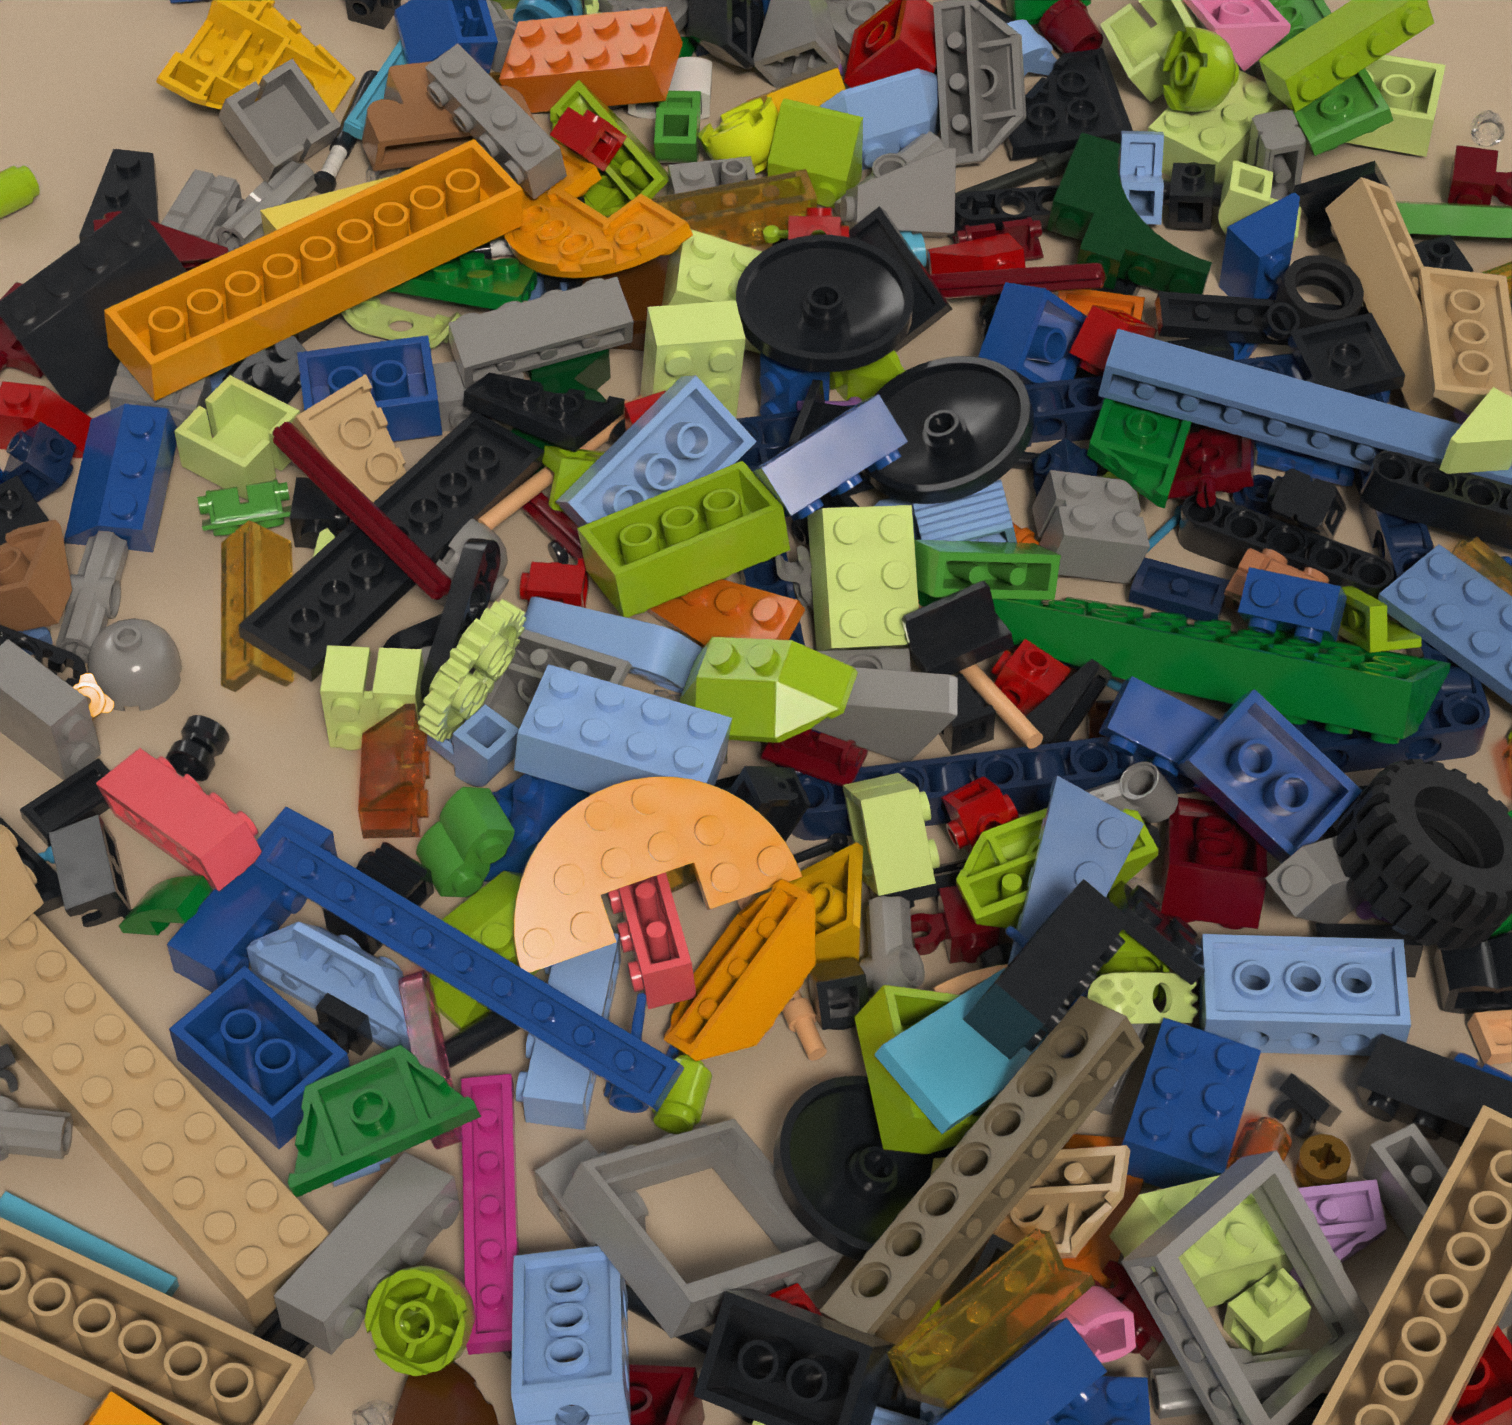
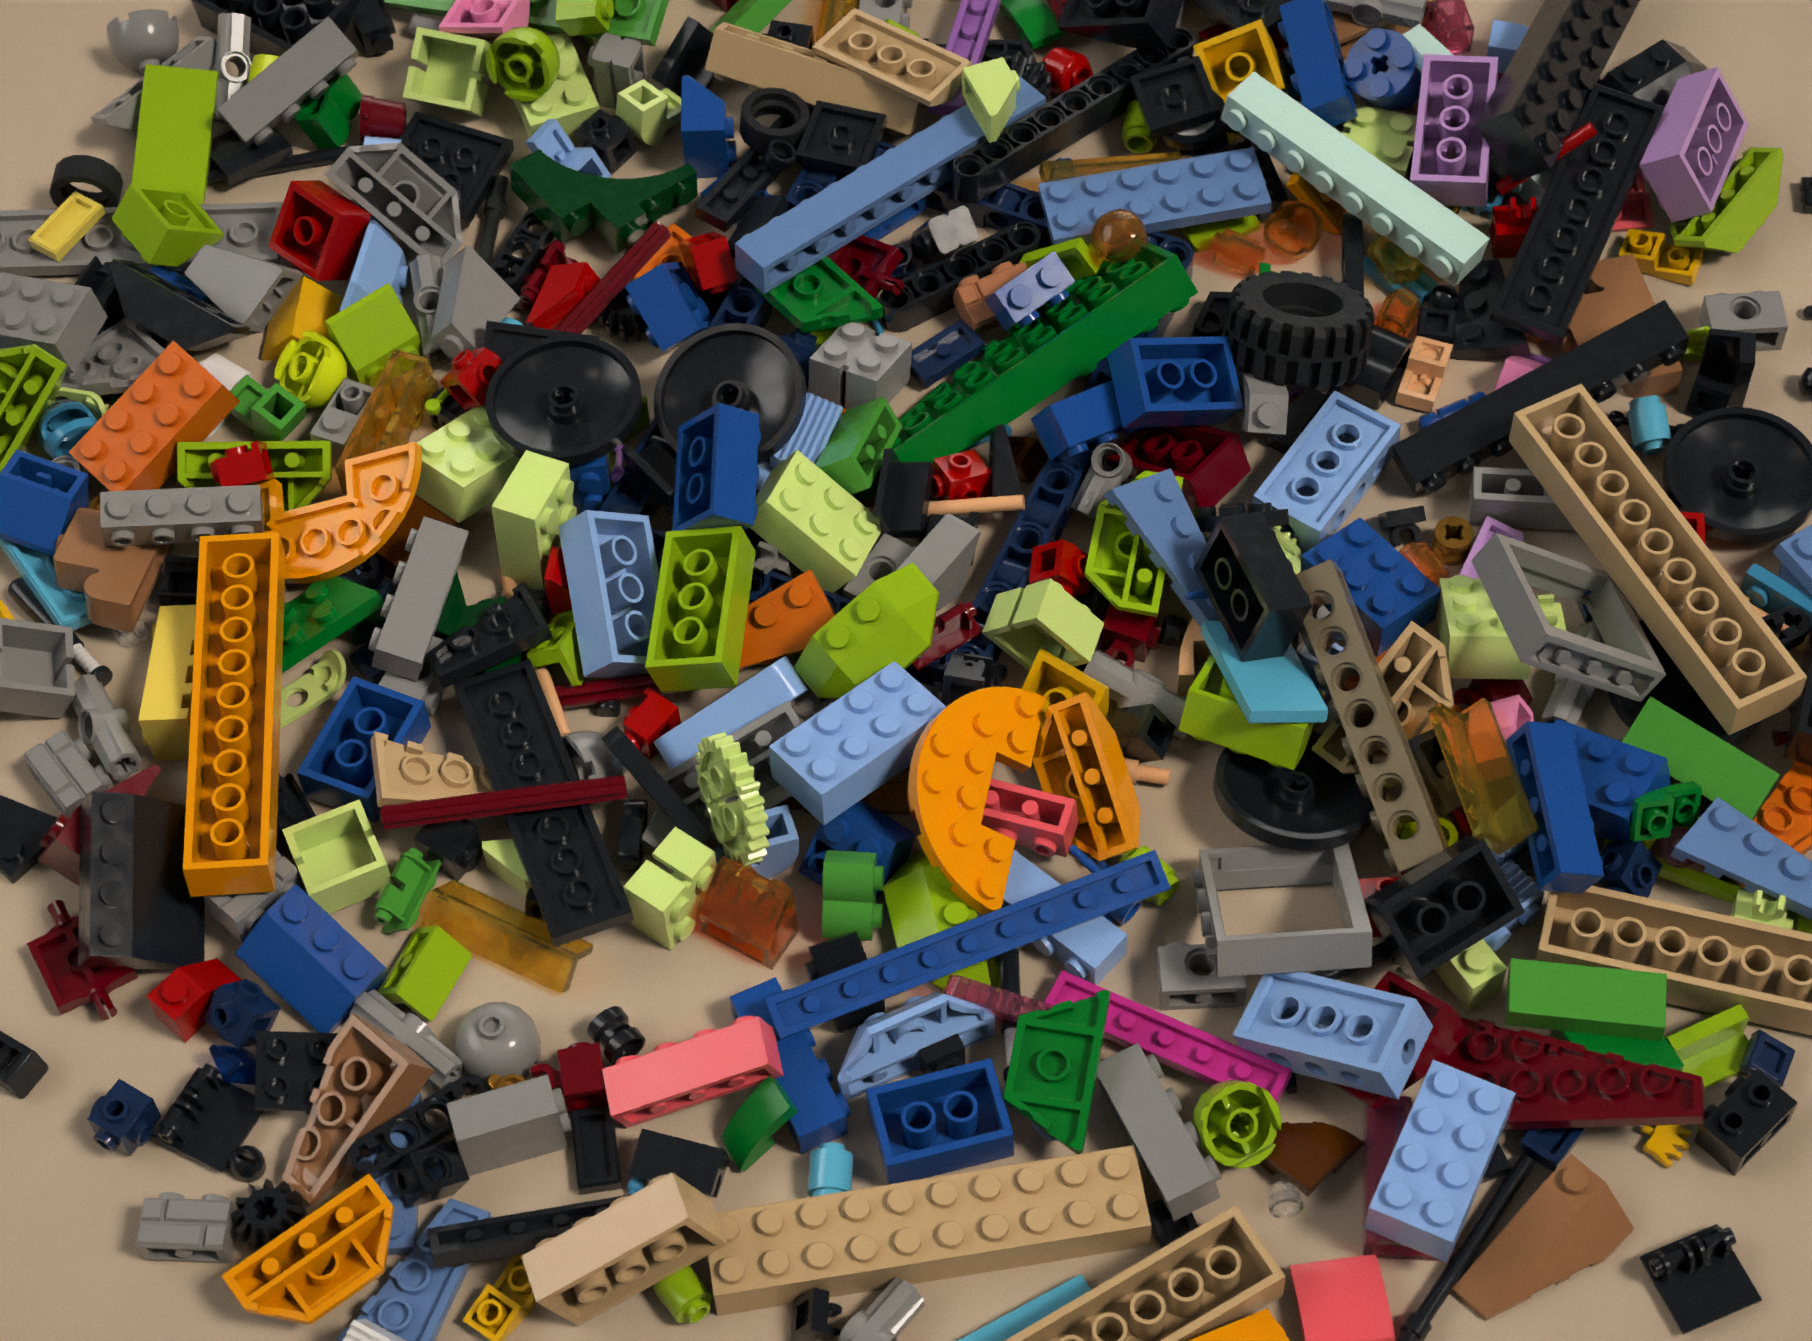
camera: 55 degrees left, 5 degrees up
(131, 731) = (578, 1077): none -> dark red brick
(155, 999) = (830, 1169): none -> medium azure brick
(173, 574) = (425, 971): none -> lime panel
(1421, 636) = (1118, 235): none -> clear orange hair

